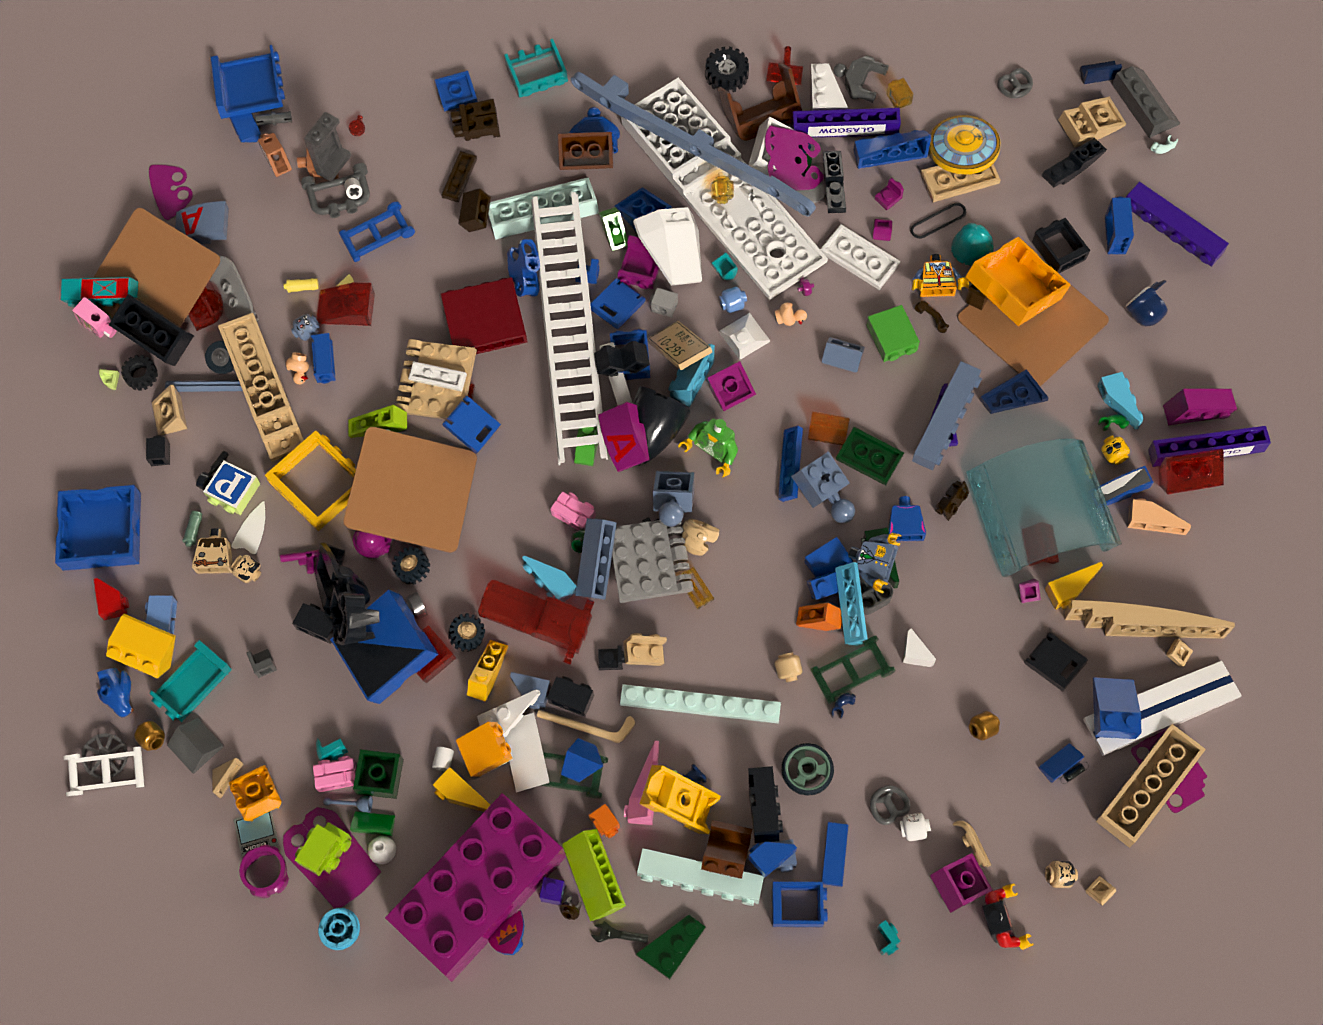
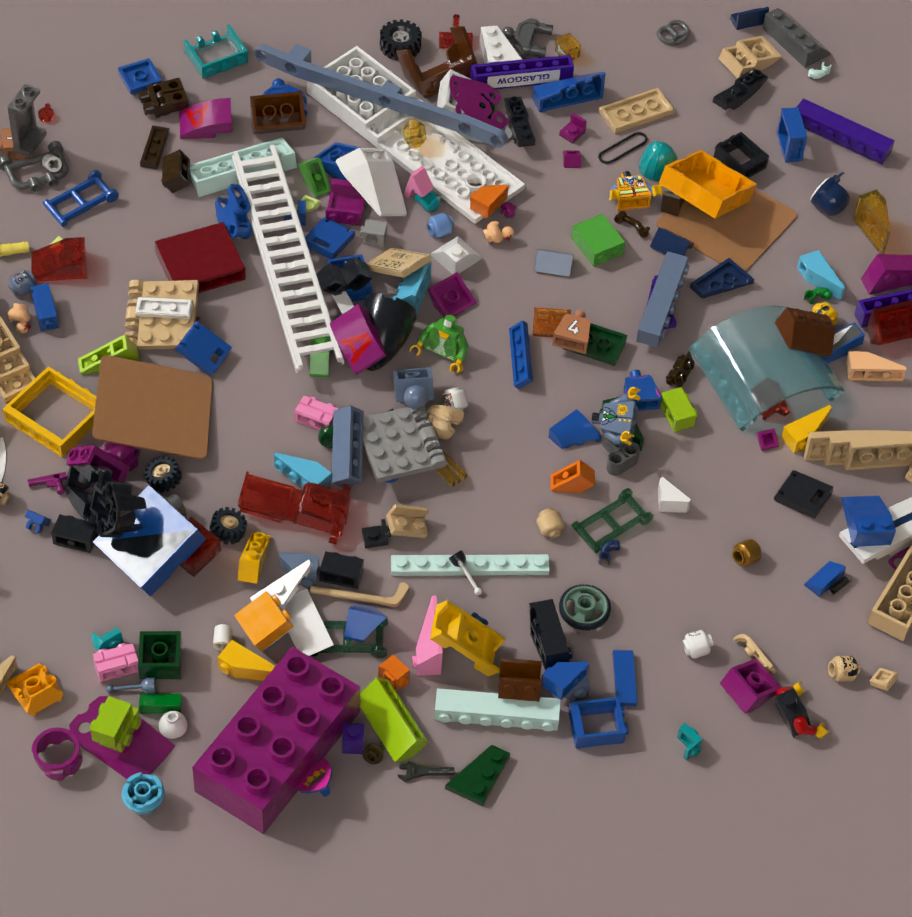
camera: 15 degrees left, 15 degrees down
(255, 833) = (32, 726): sticker -> none
(262, 663) = (24, 575): dark grey panel -> none
(282, 601) = (37, 519): none -> blue tile
(357, 562) = (92, 454): none -> magenta panel
(514, 149) = (206, 119): none -> magenta slope
(605, 259) = (311, 203): none -> yellowish green tile
(688, 701) = (459, 560): none -> hinge
(714, 512) = (455, 398): none -> white head
(717, 250) = (418, 183): none -> bright pink slope
(785, 276) = (488, 199): none -> orange slope
(822, 481) = (555, 363): sand blue brick -> none
(823, 585) = (574, 450): blue slope -> none
(848, 446) = (572, 332): none -> nougat torso
(851, 604) = (599, 462): medium azure fence -> none
(860, 257) = (555, 182): white tile -> none
(894, 813) = (668, 629): dark grey piece -> none
(942, 546) = (678, 409): none -> lime brick
(964, 144) = (636, 83): dish -> none
(969, 344) = (668, 241): none -> dark blue panel
(1090, 476) = (806, 331): none -> reddish brown slope
(1188, 339) = (873, 219): none -> clear yellow slope

